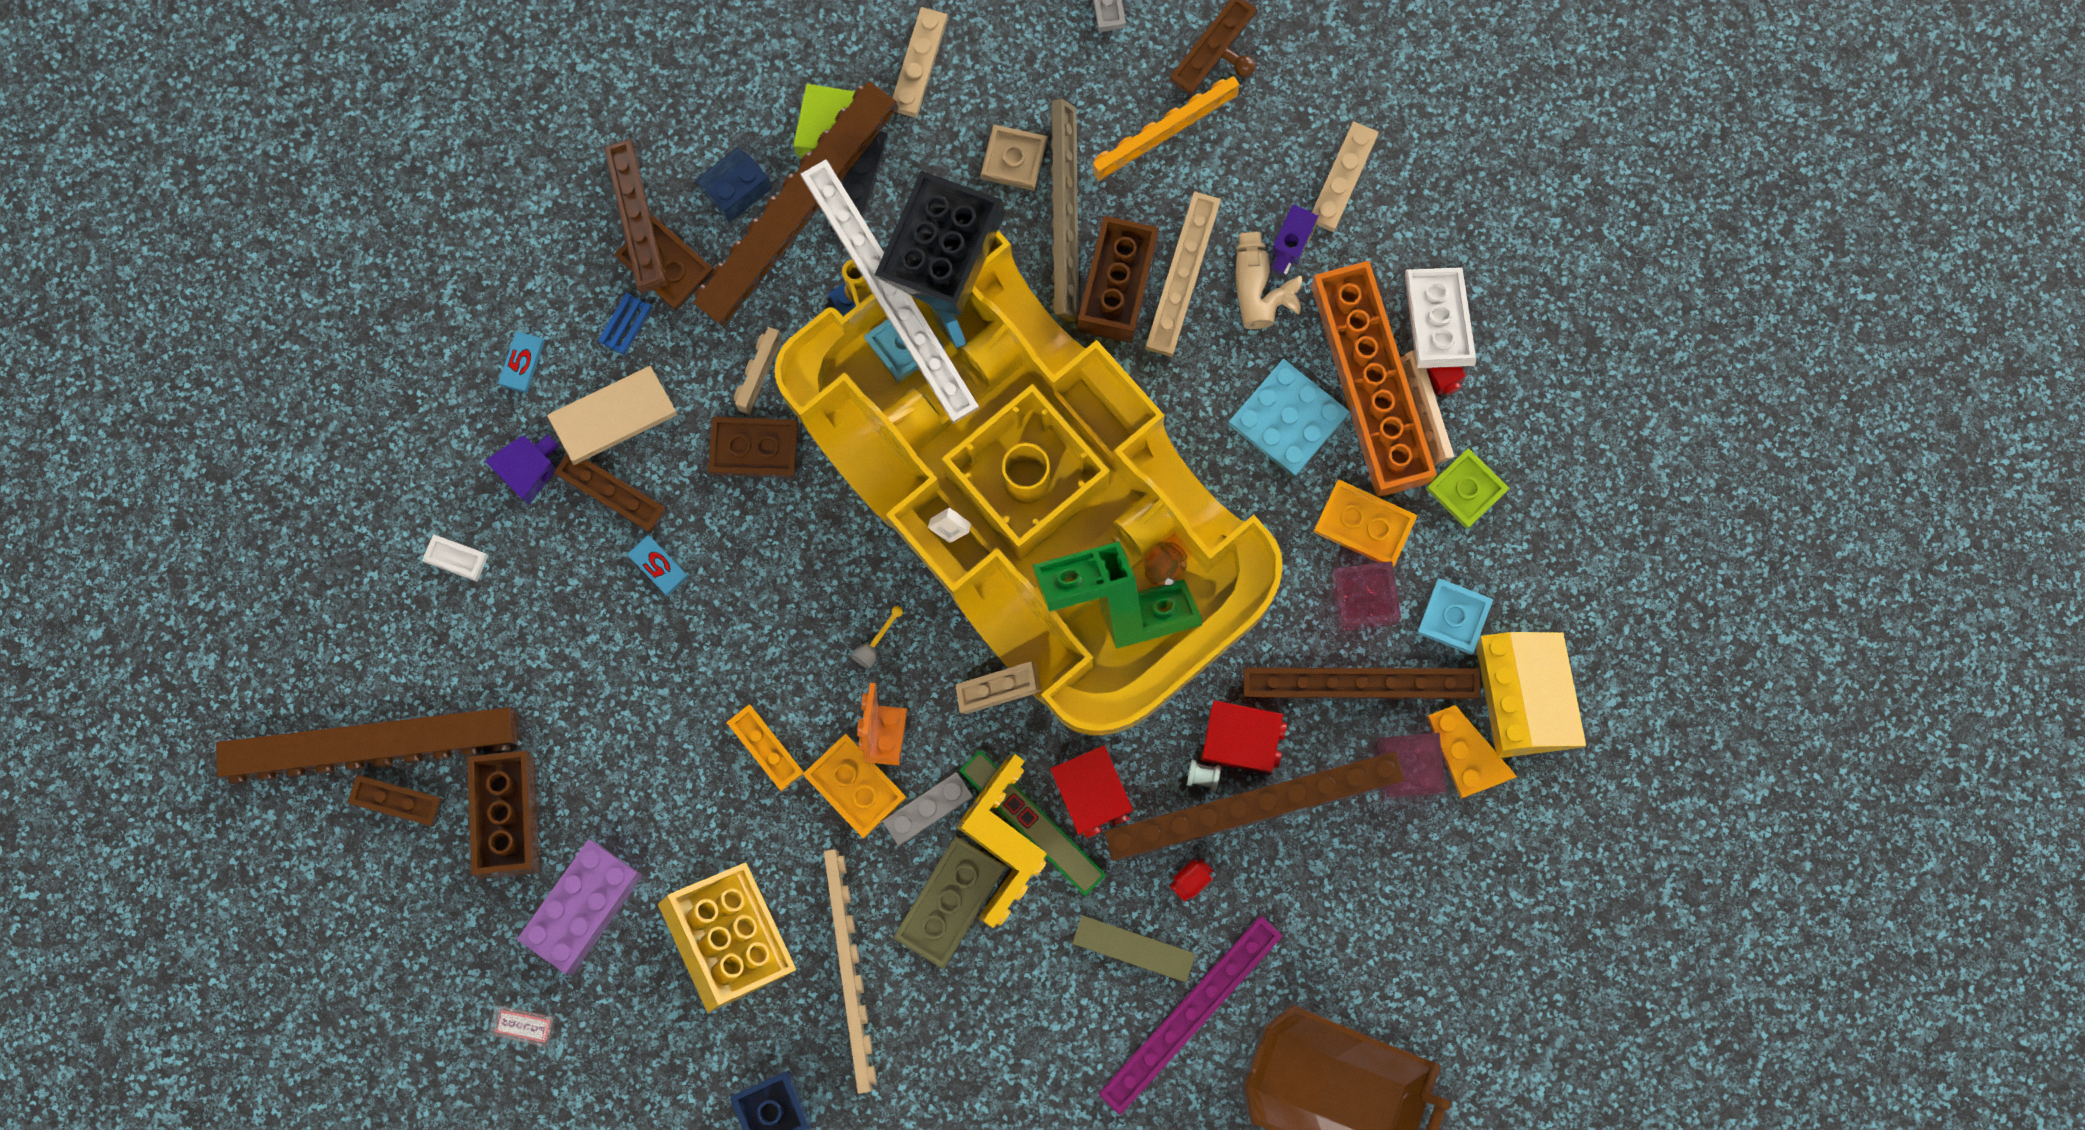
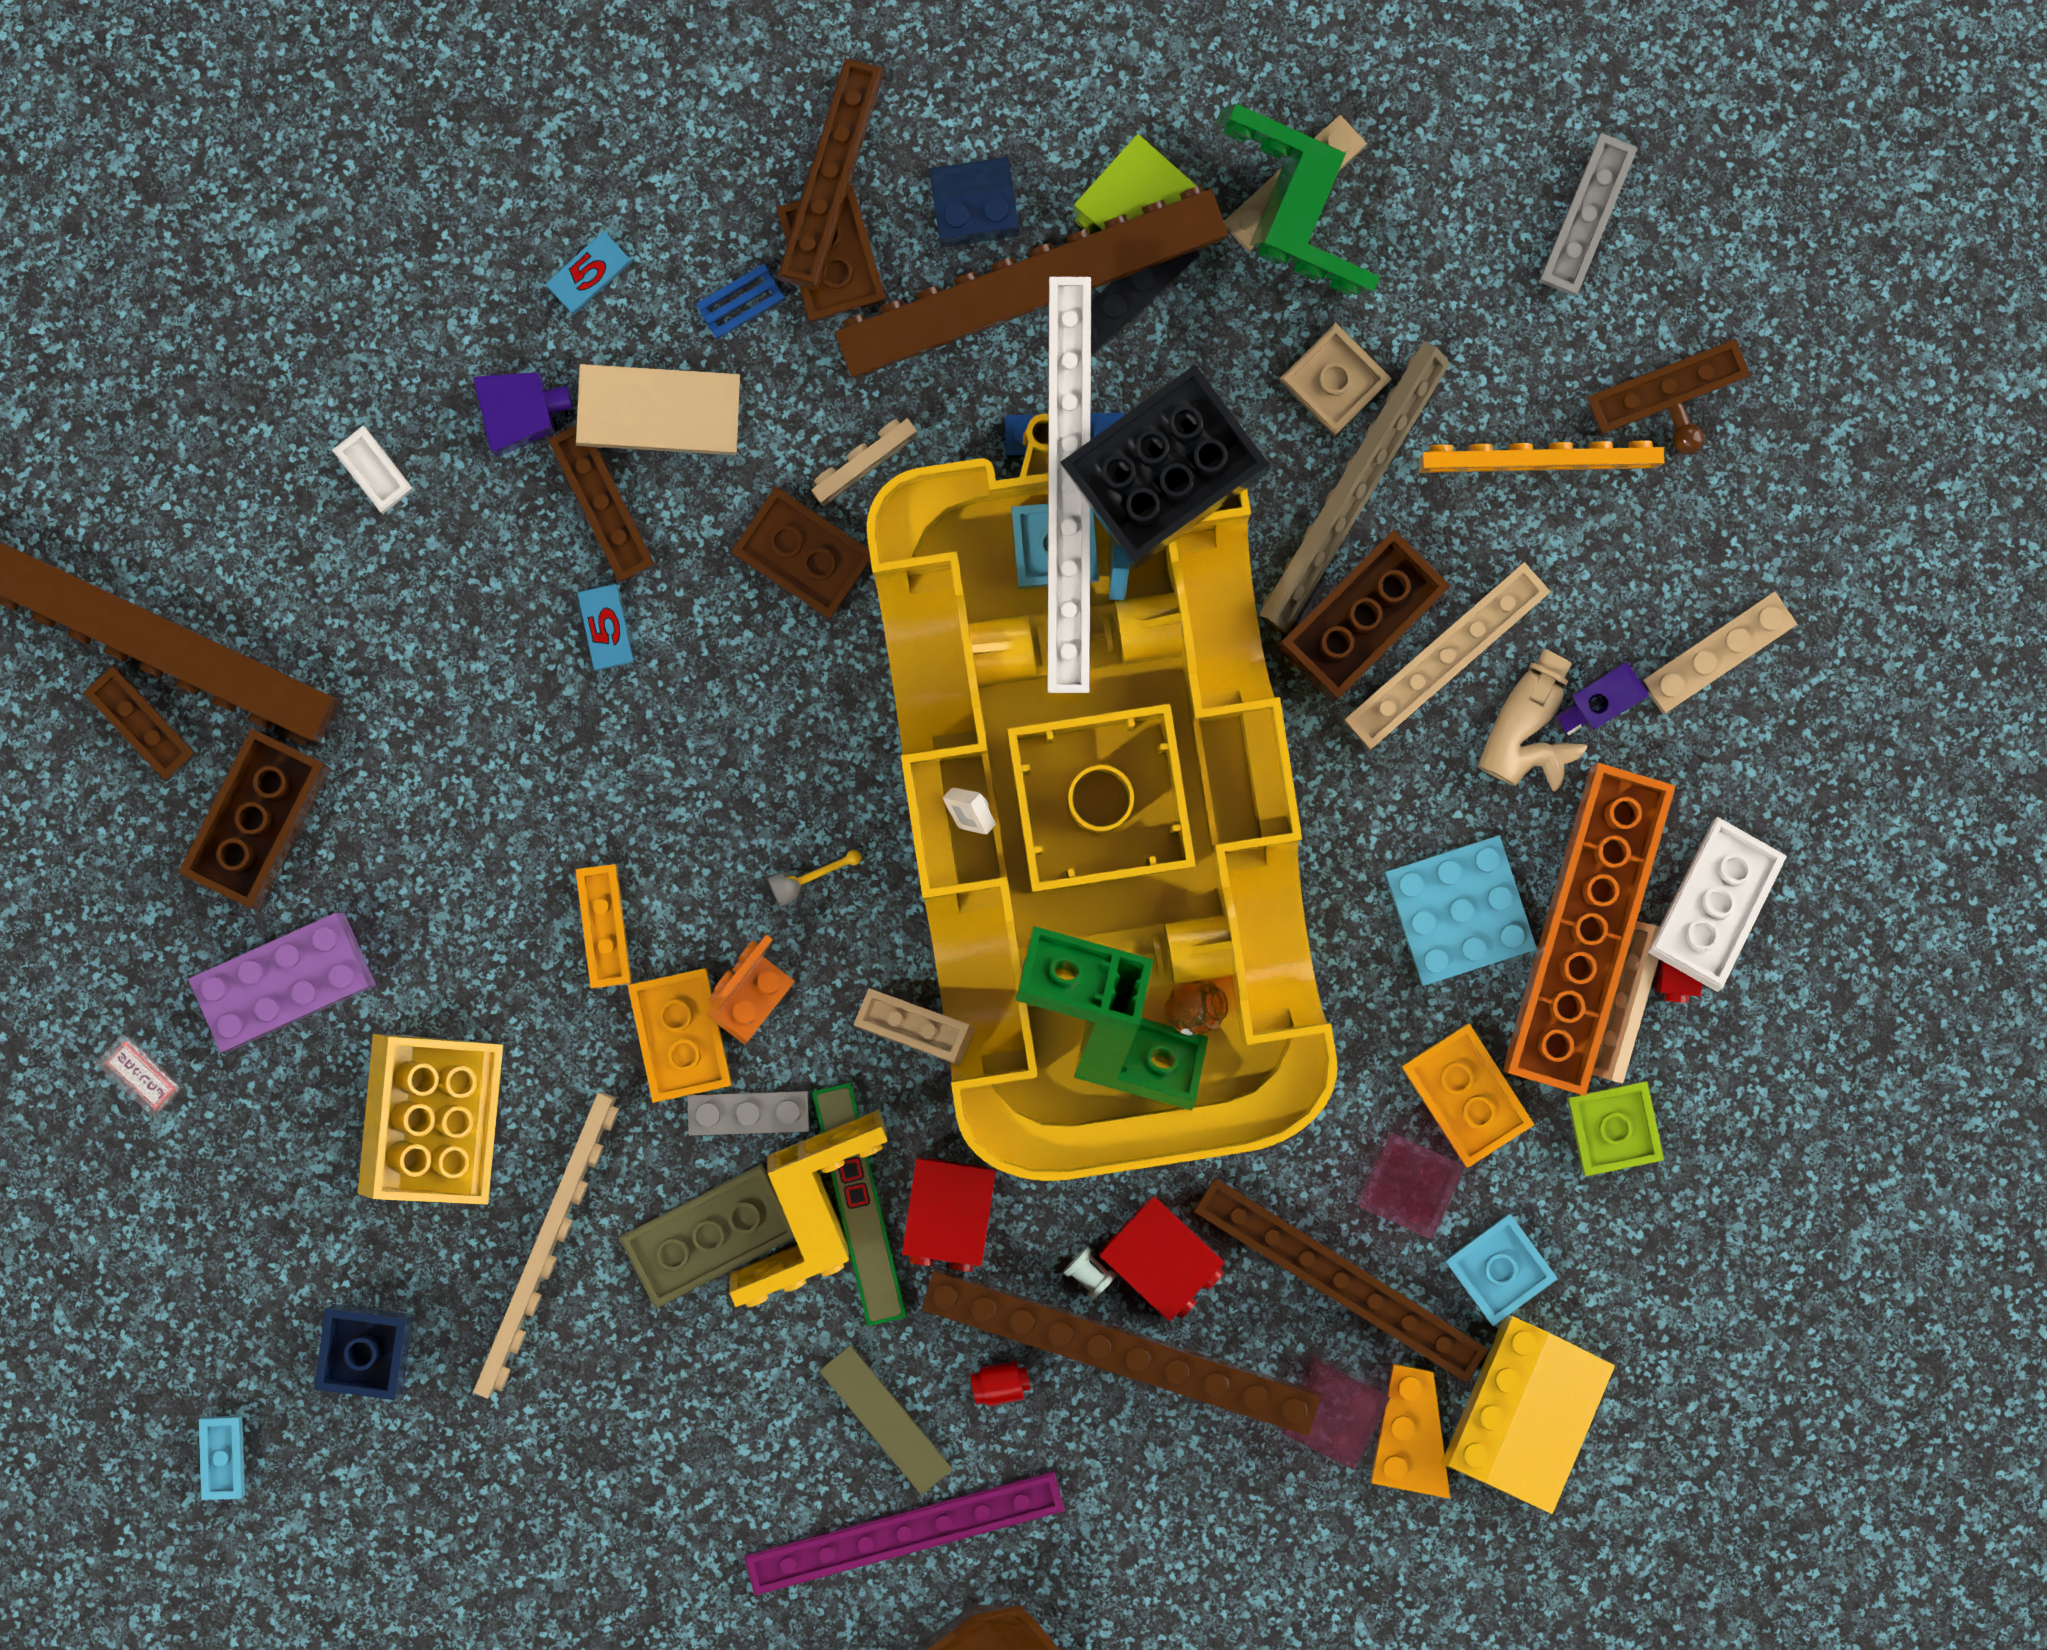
camera: 25 degrees right, 10 degrees up
(924, 61) = (1296, 199): none -> green bracket

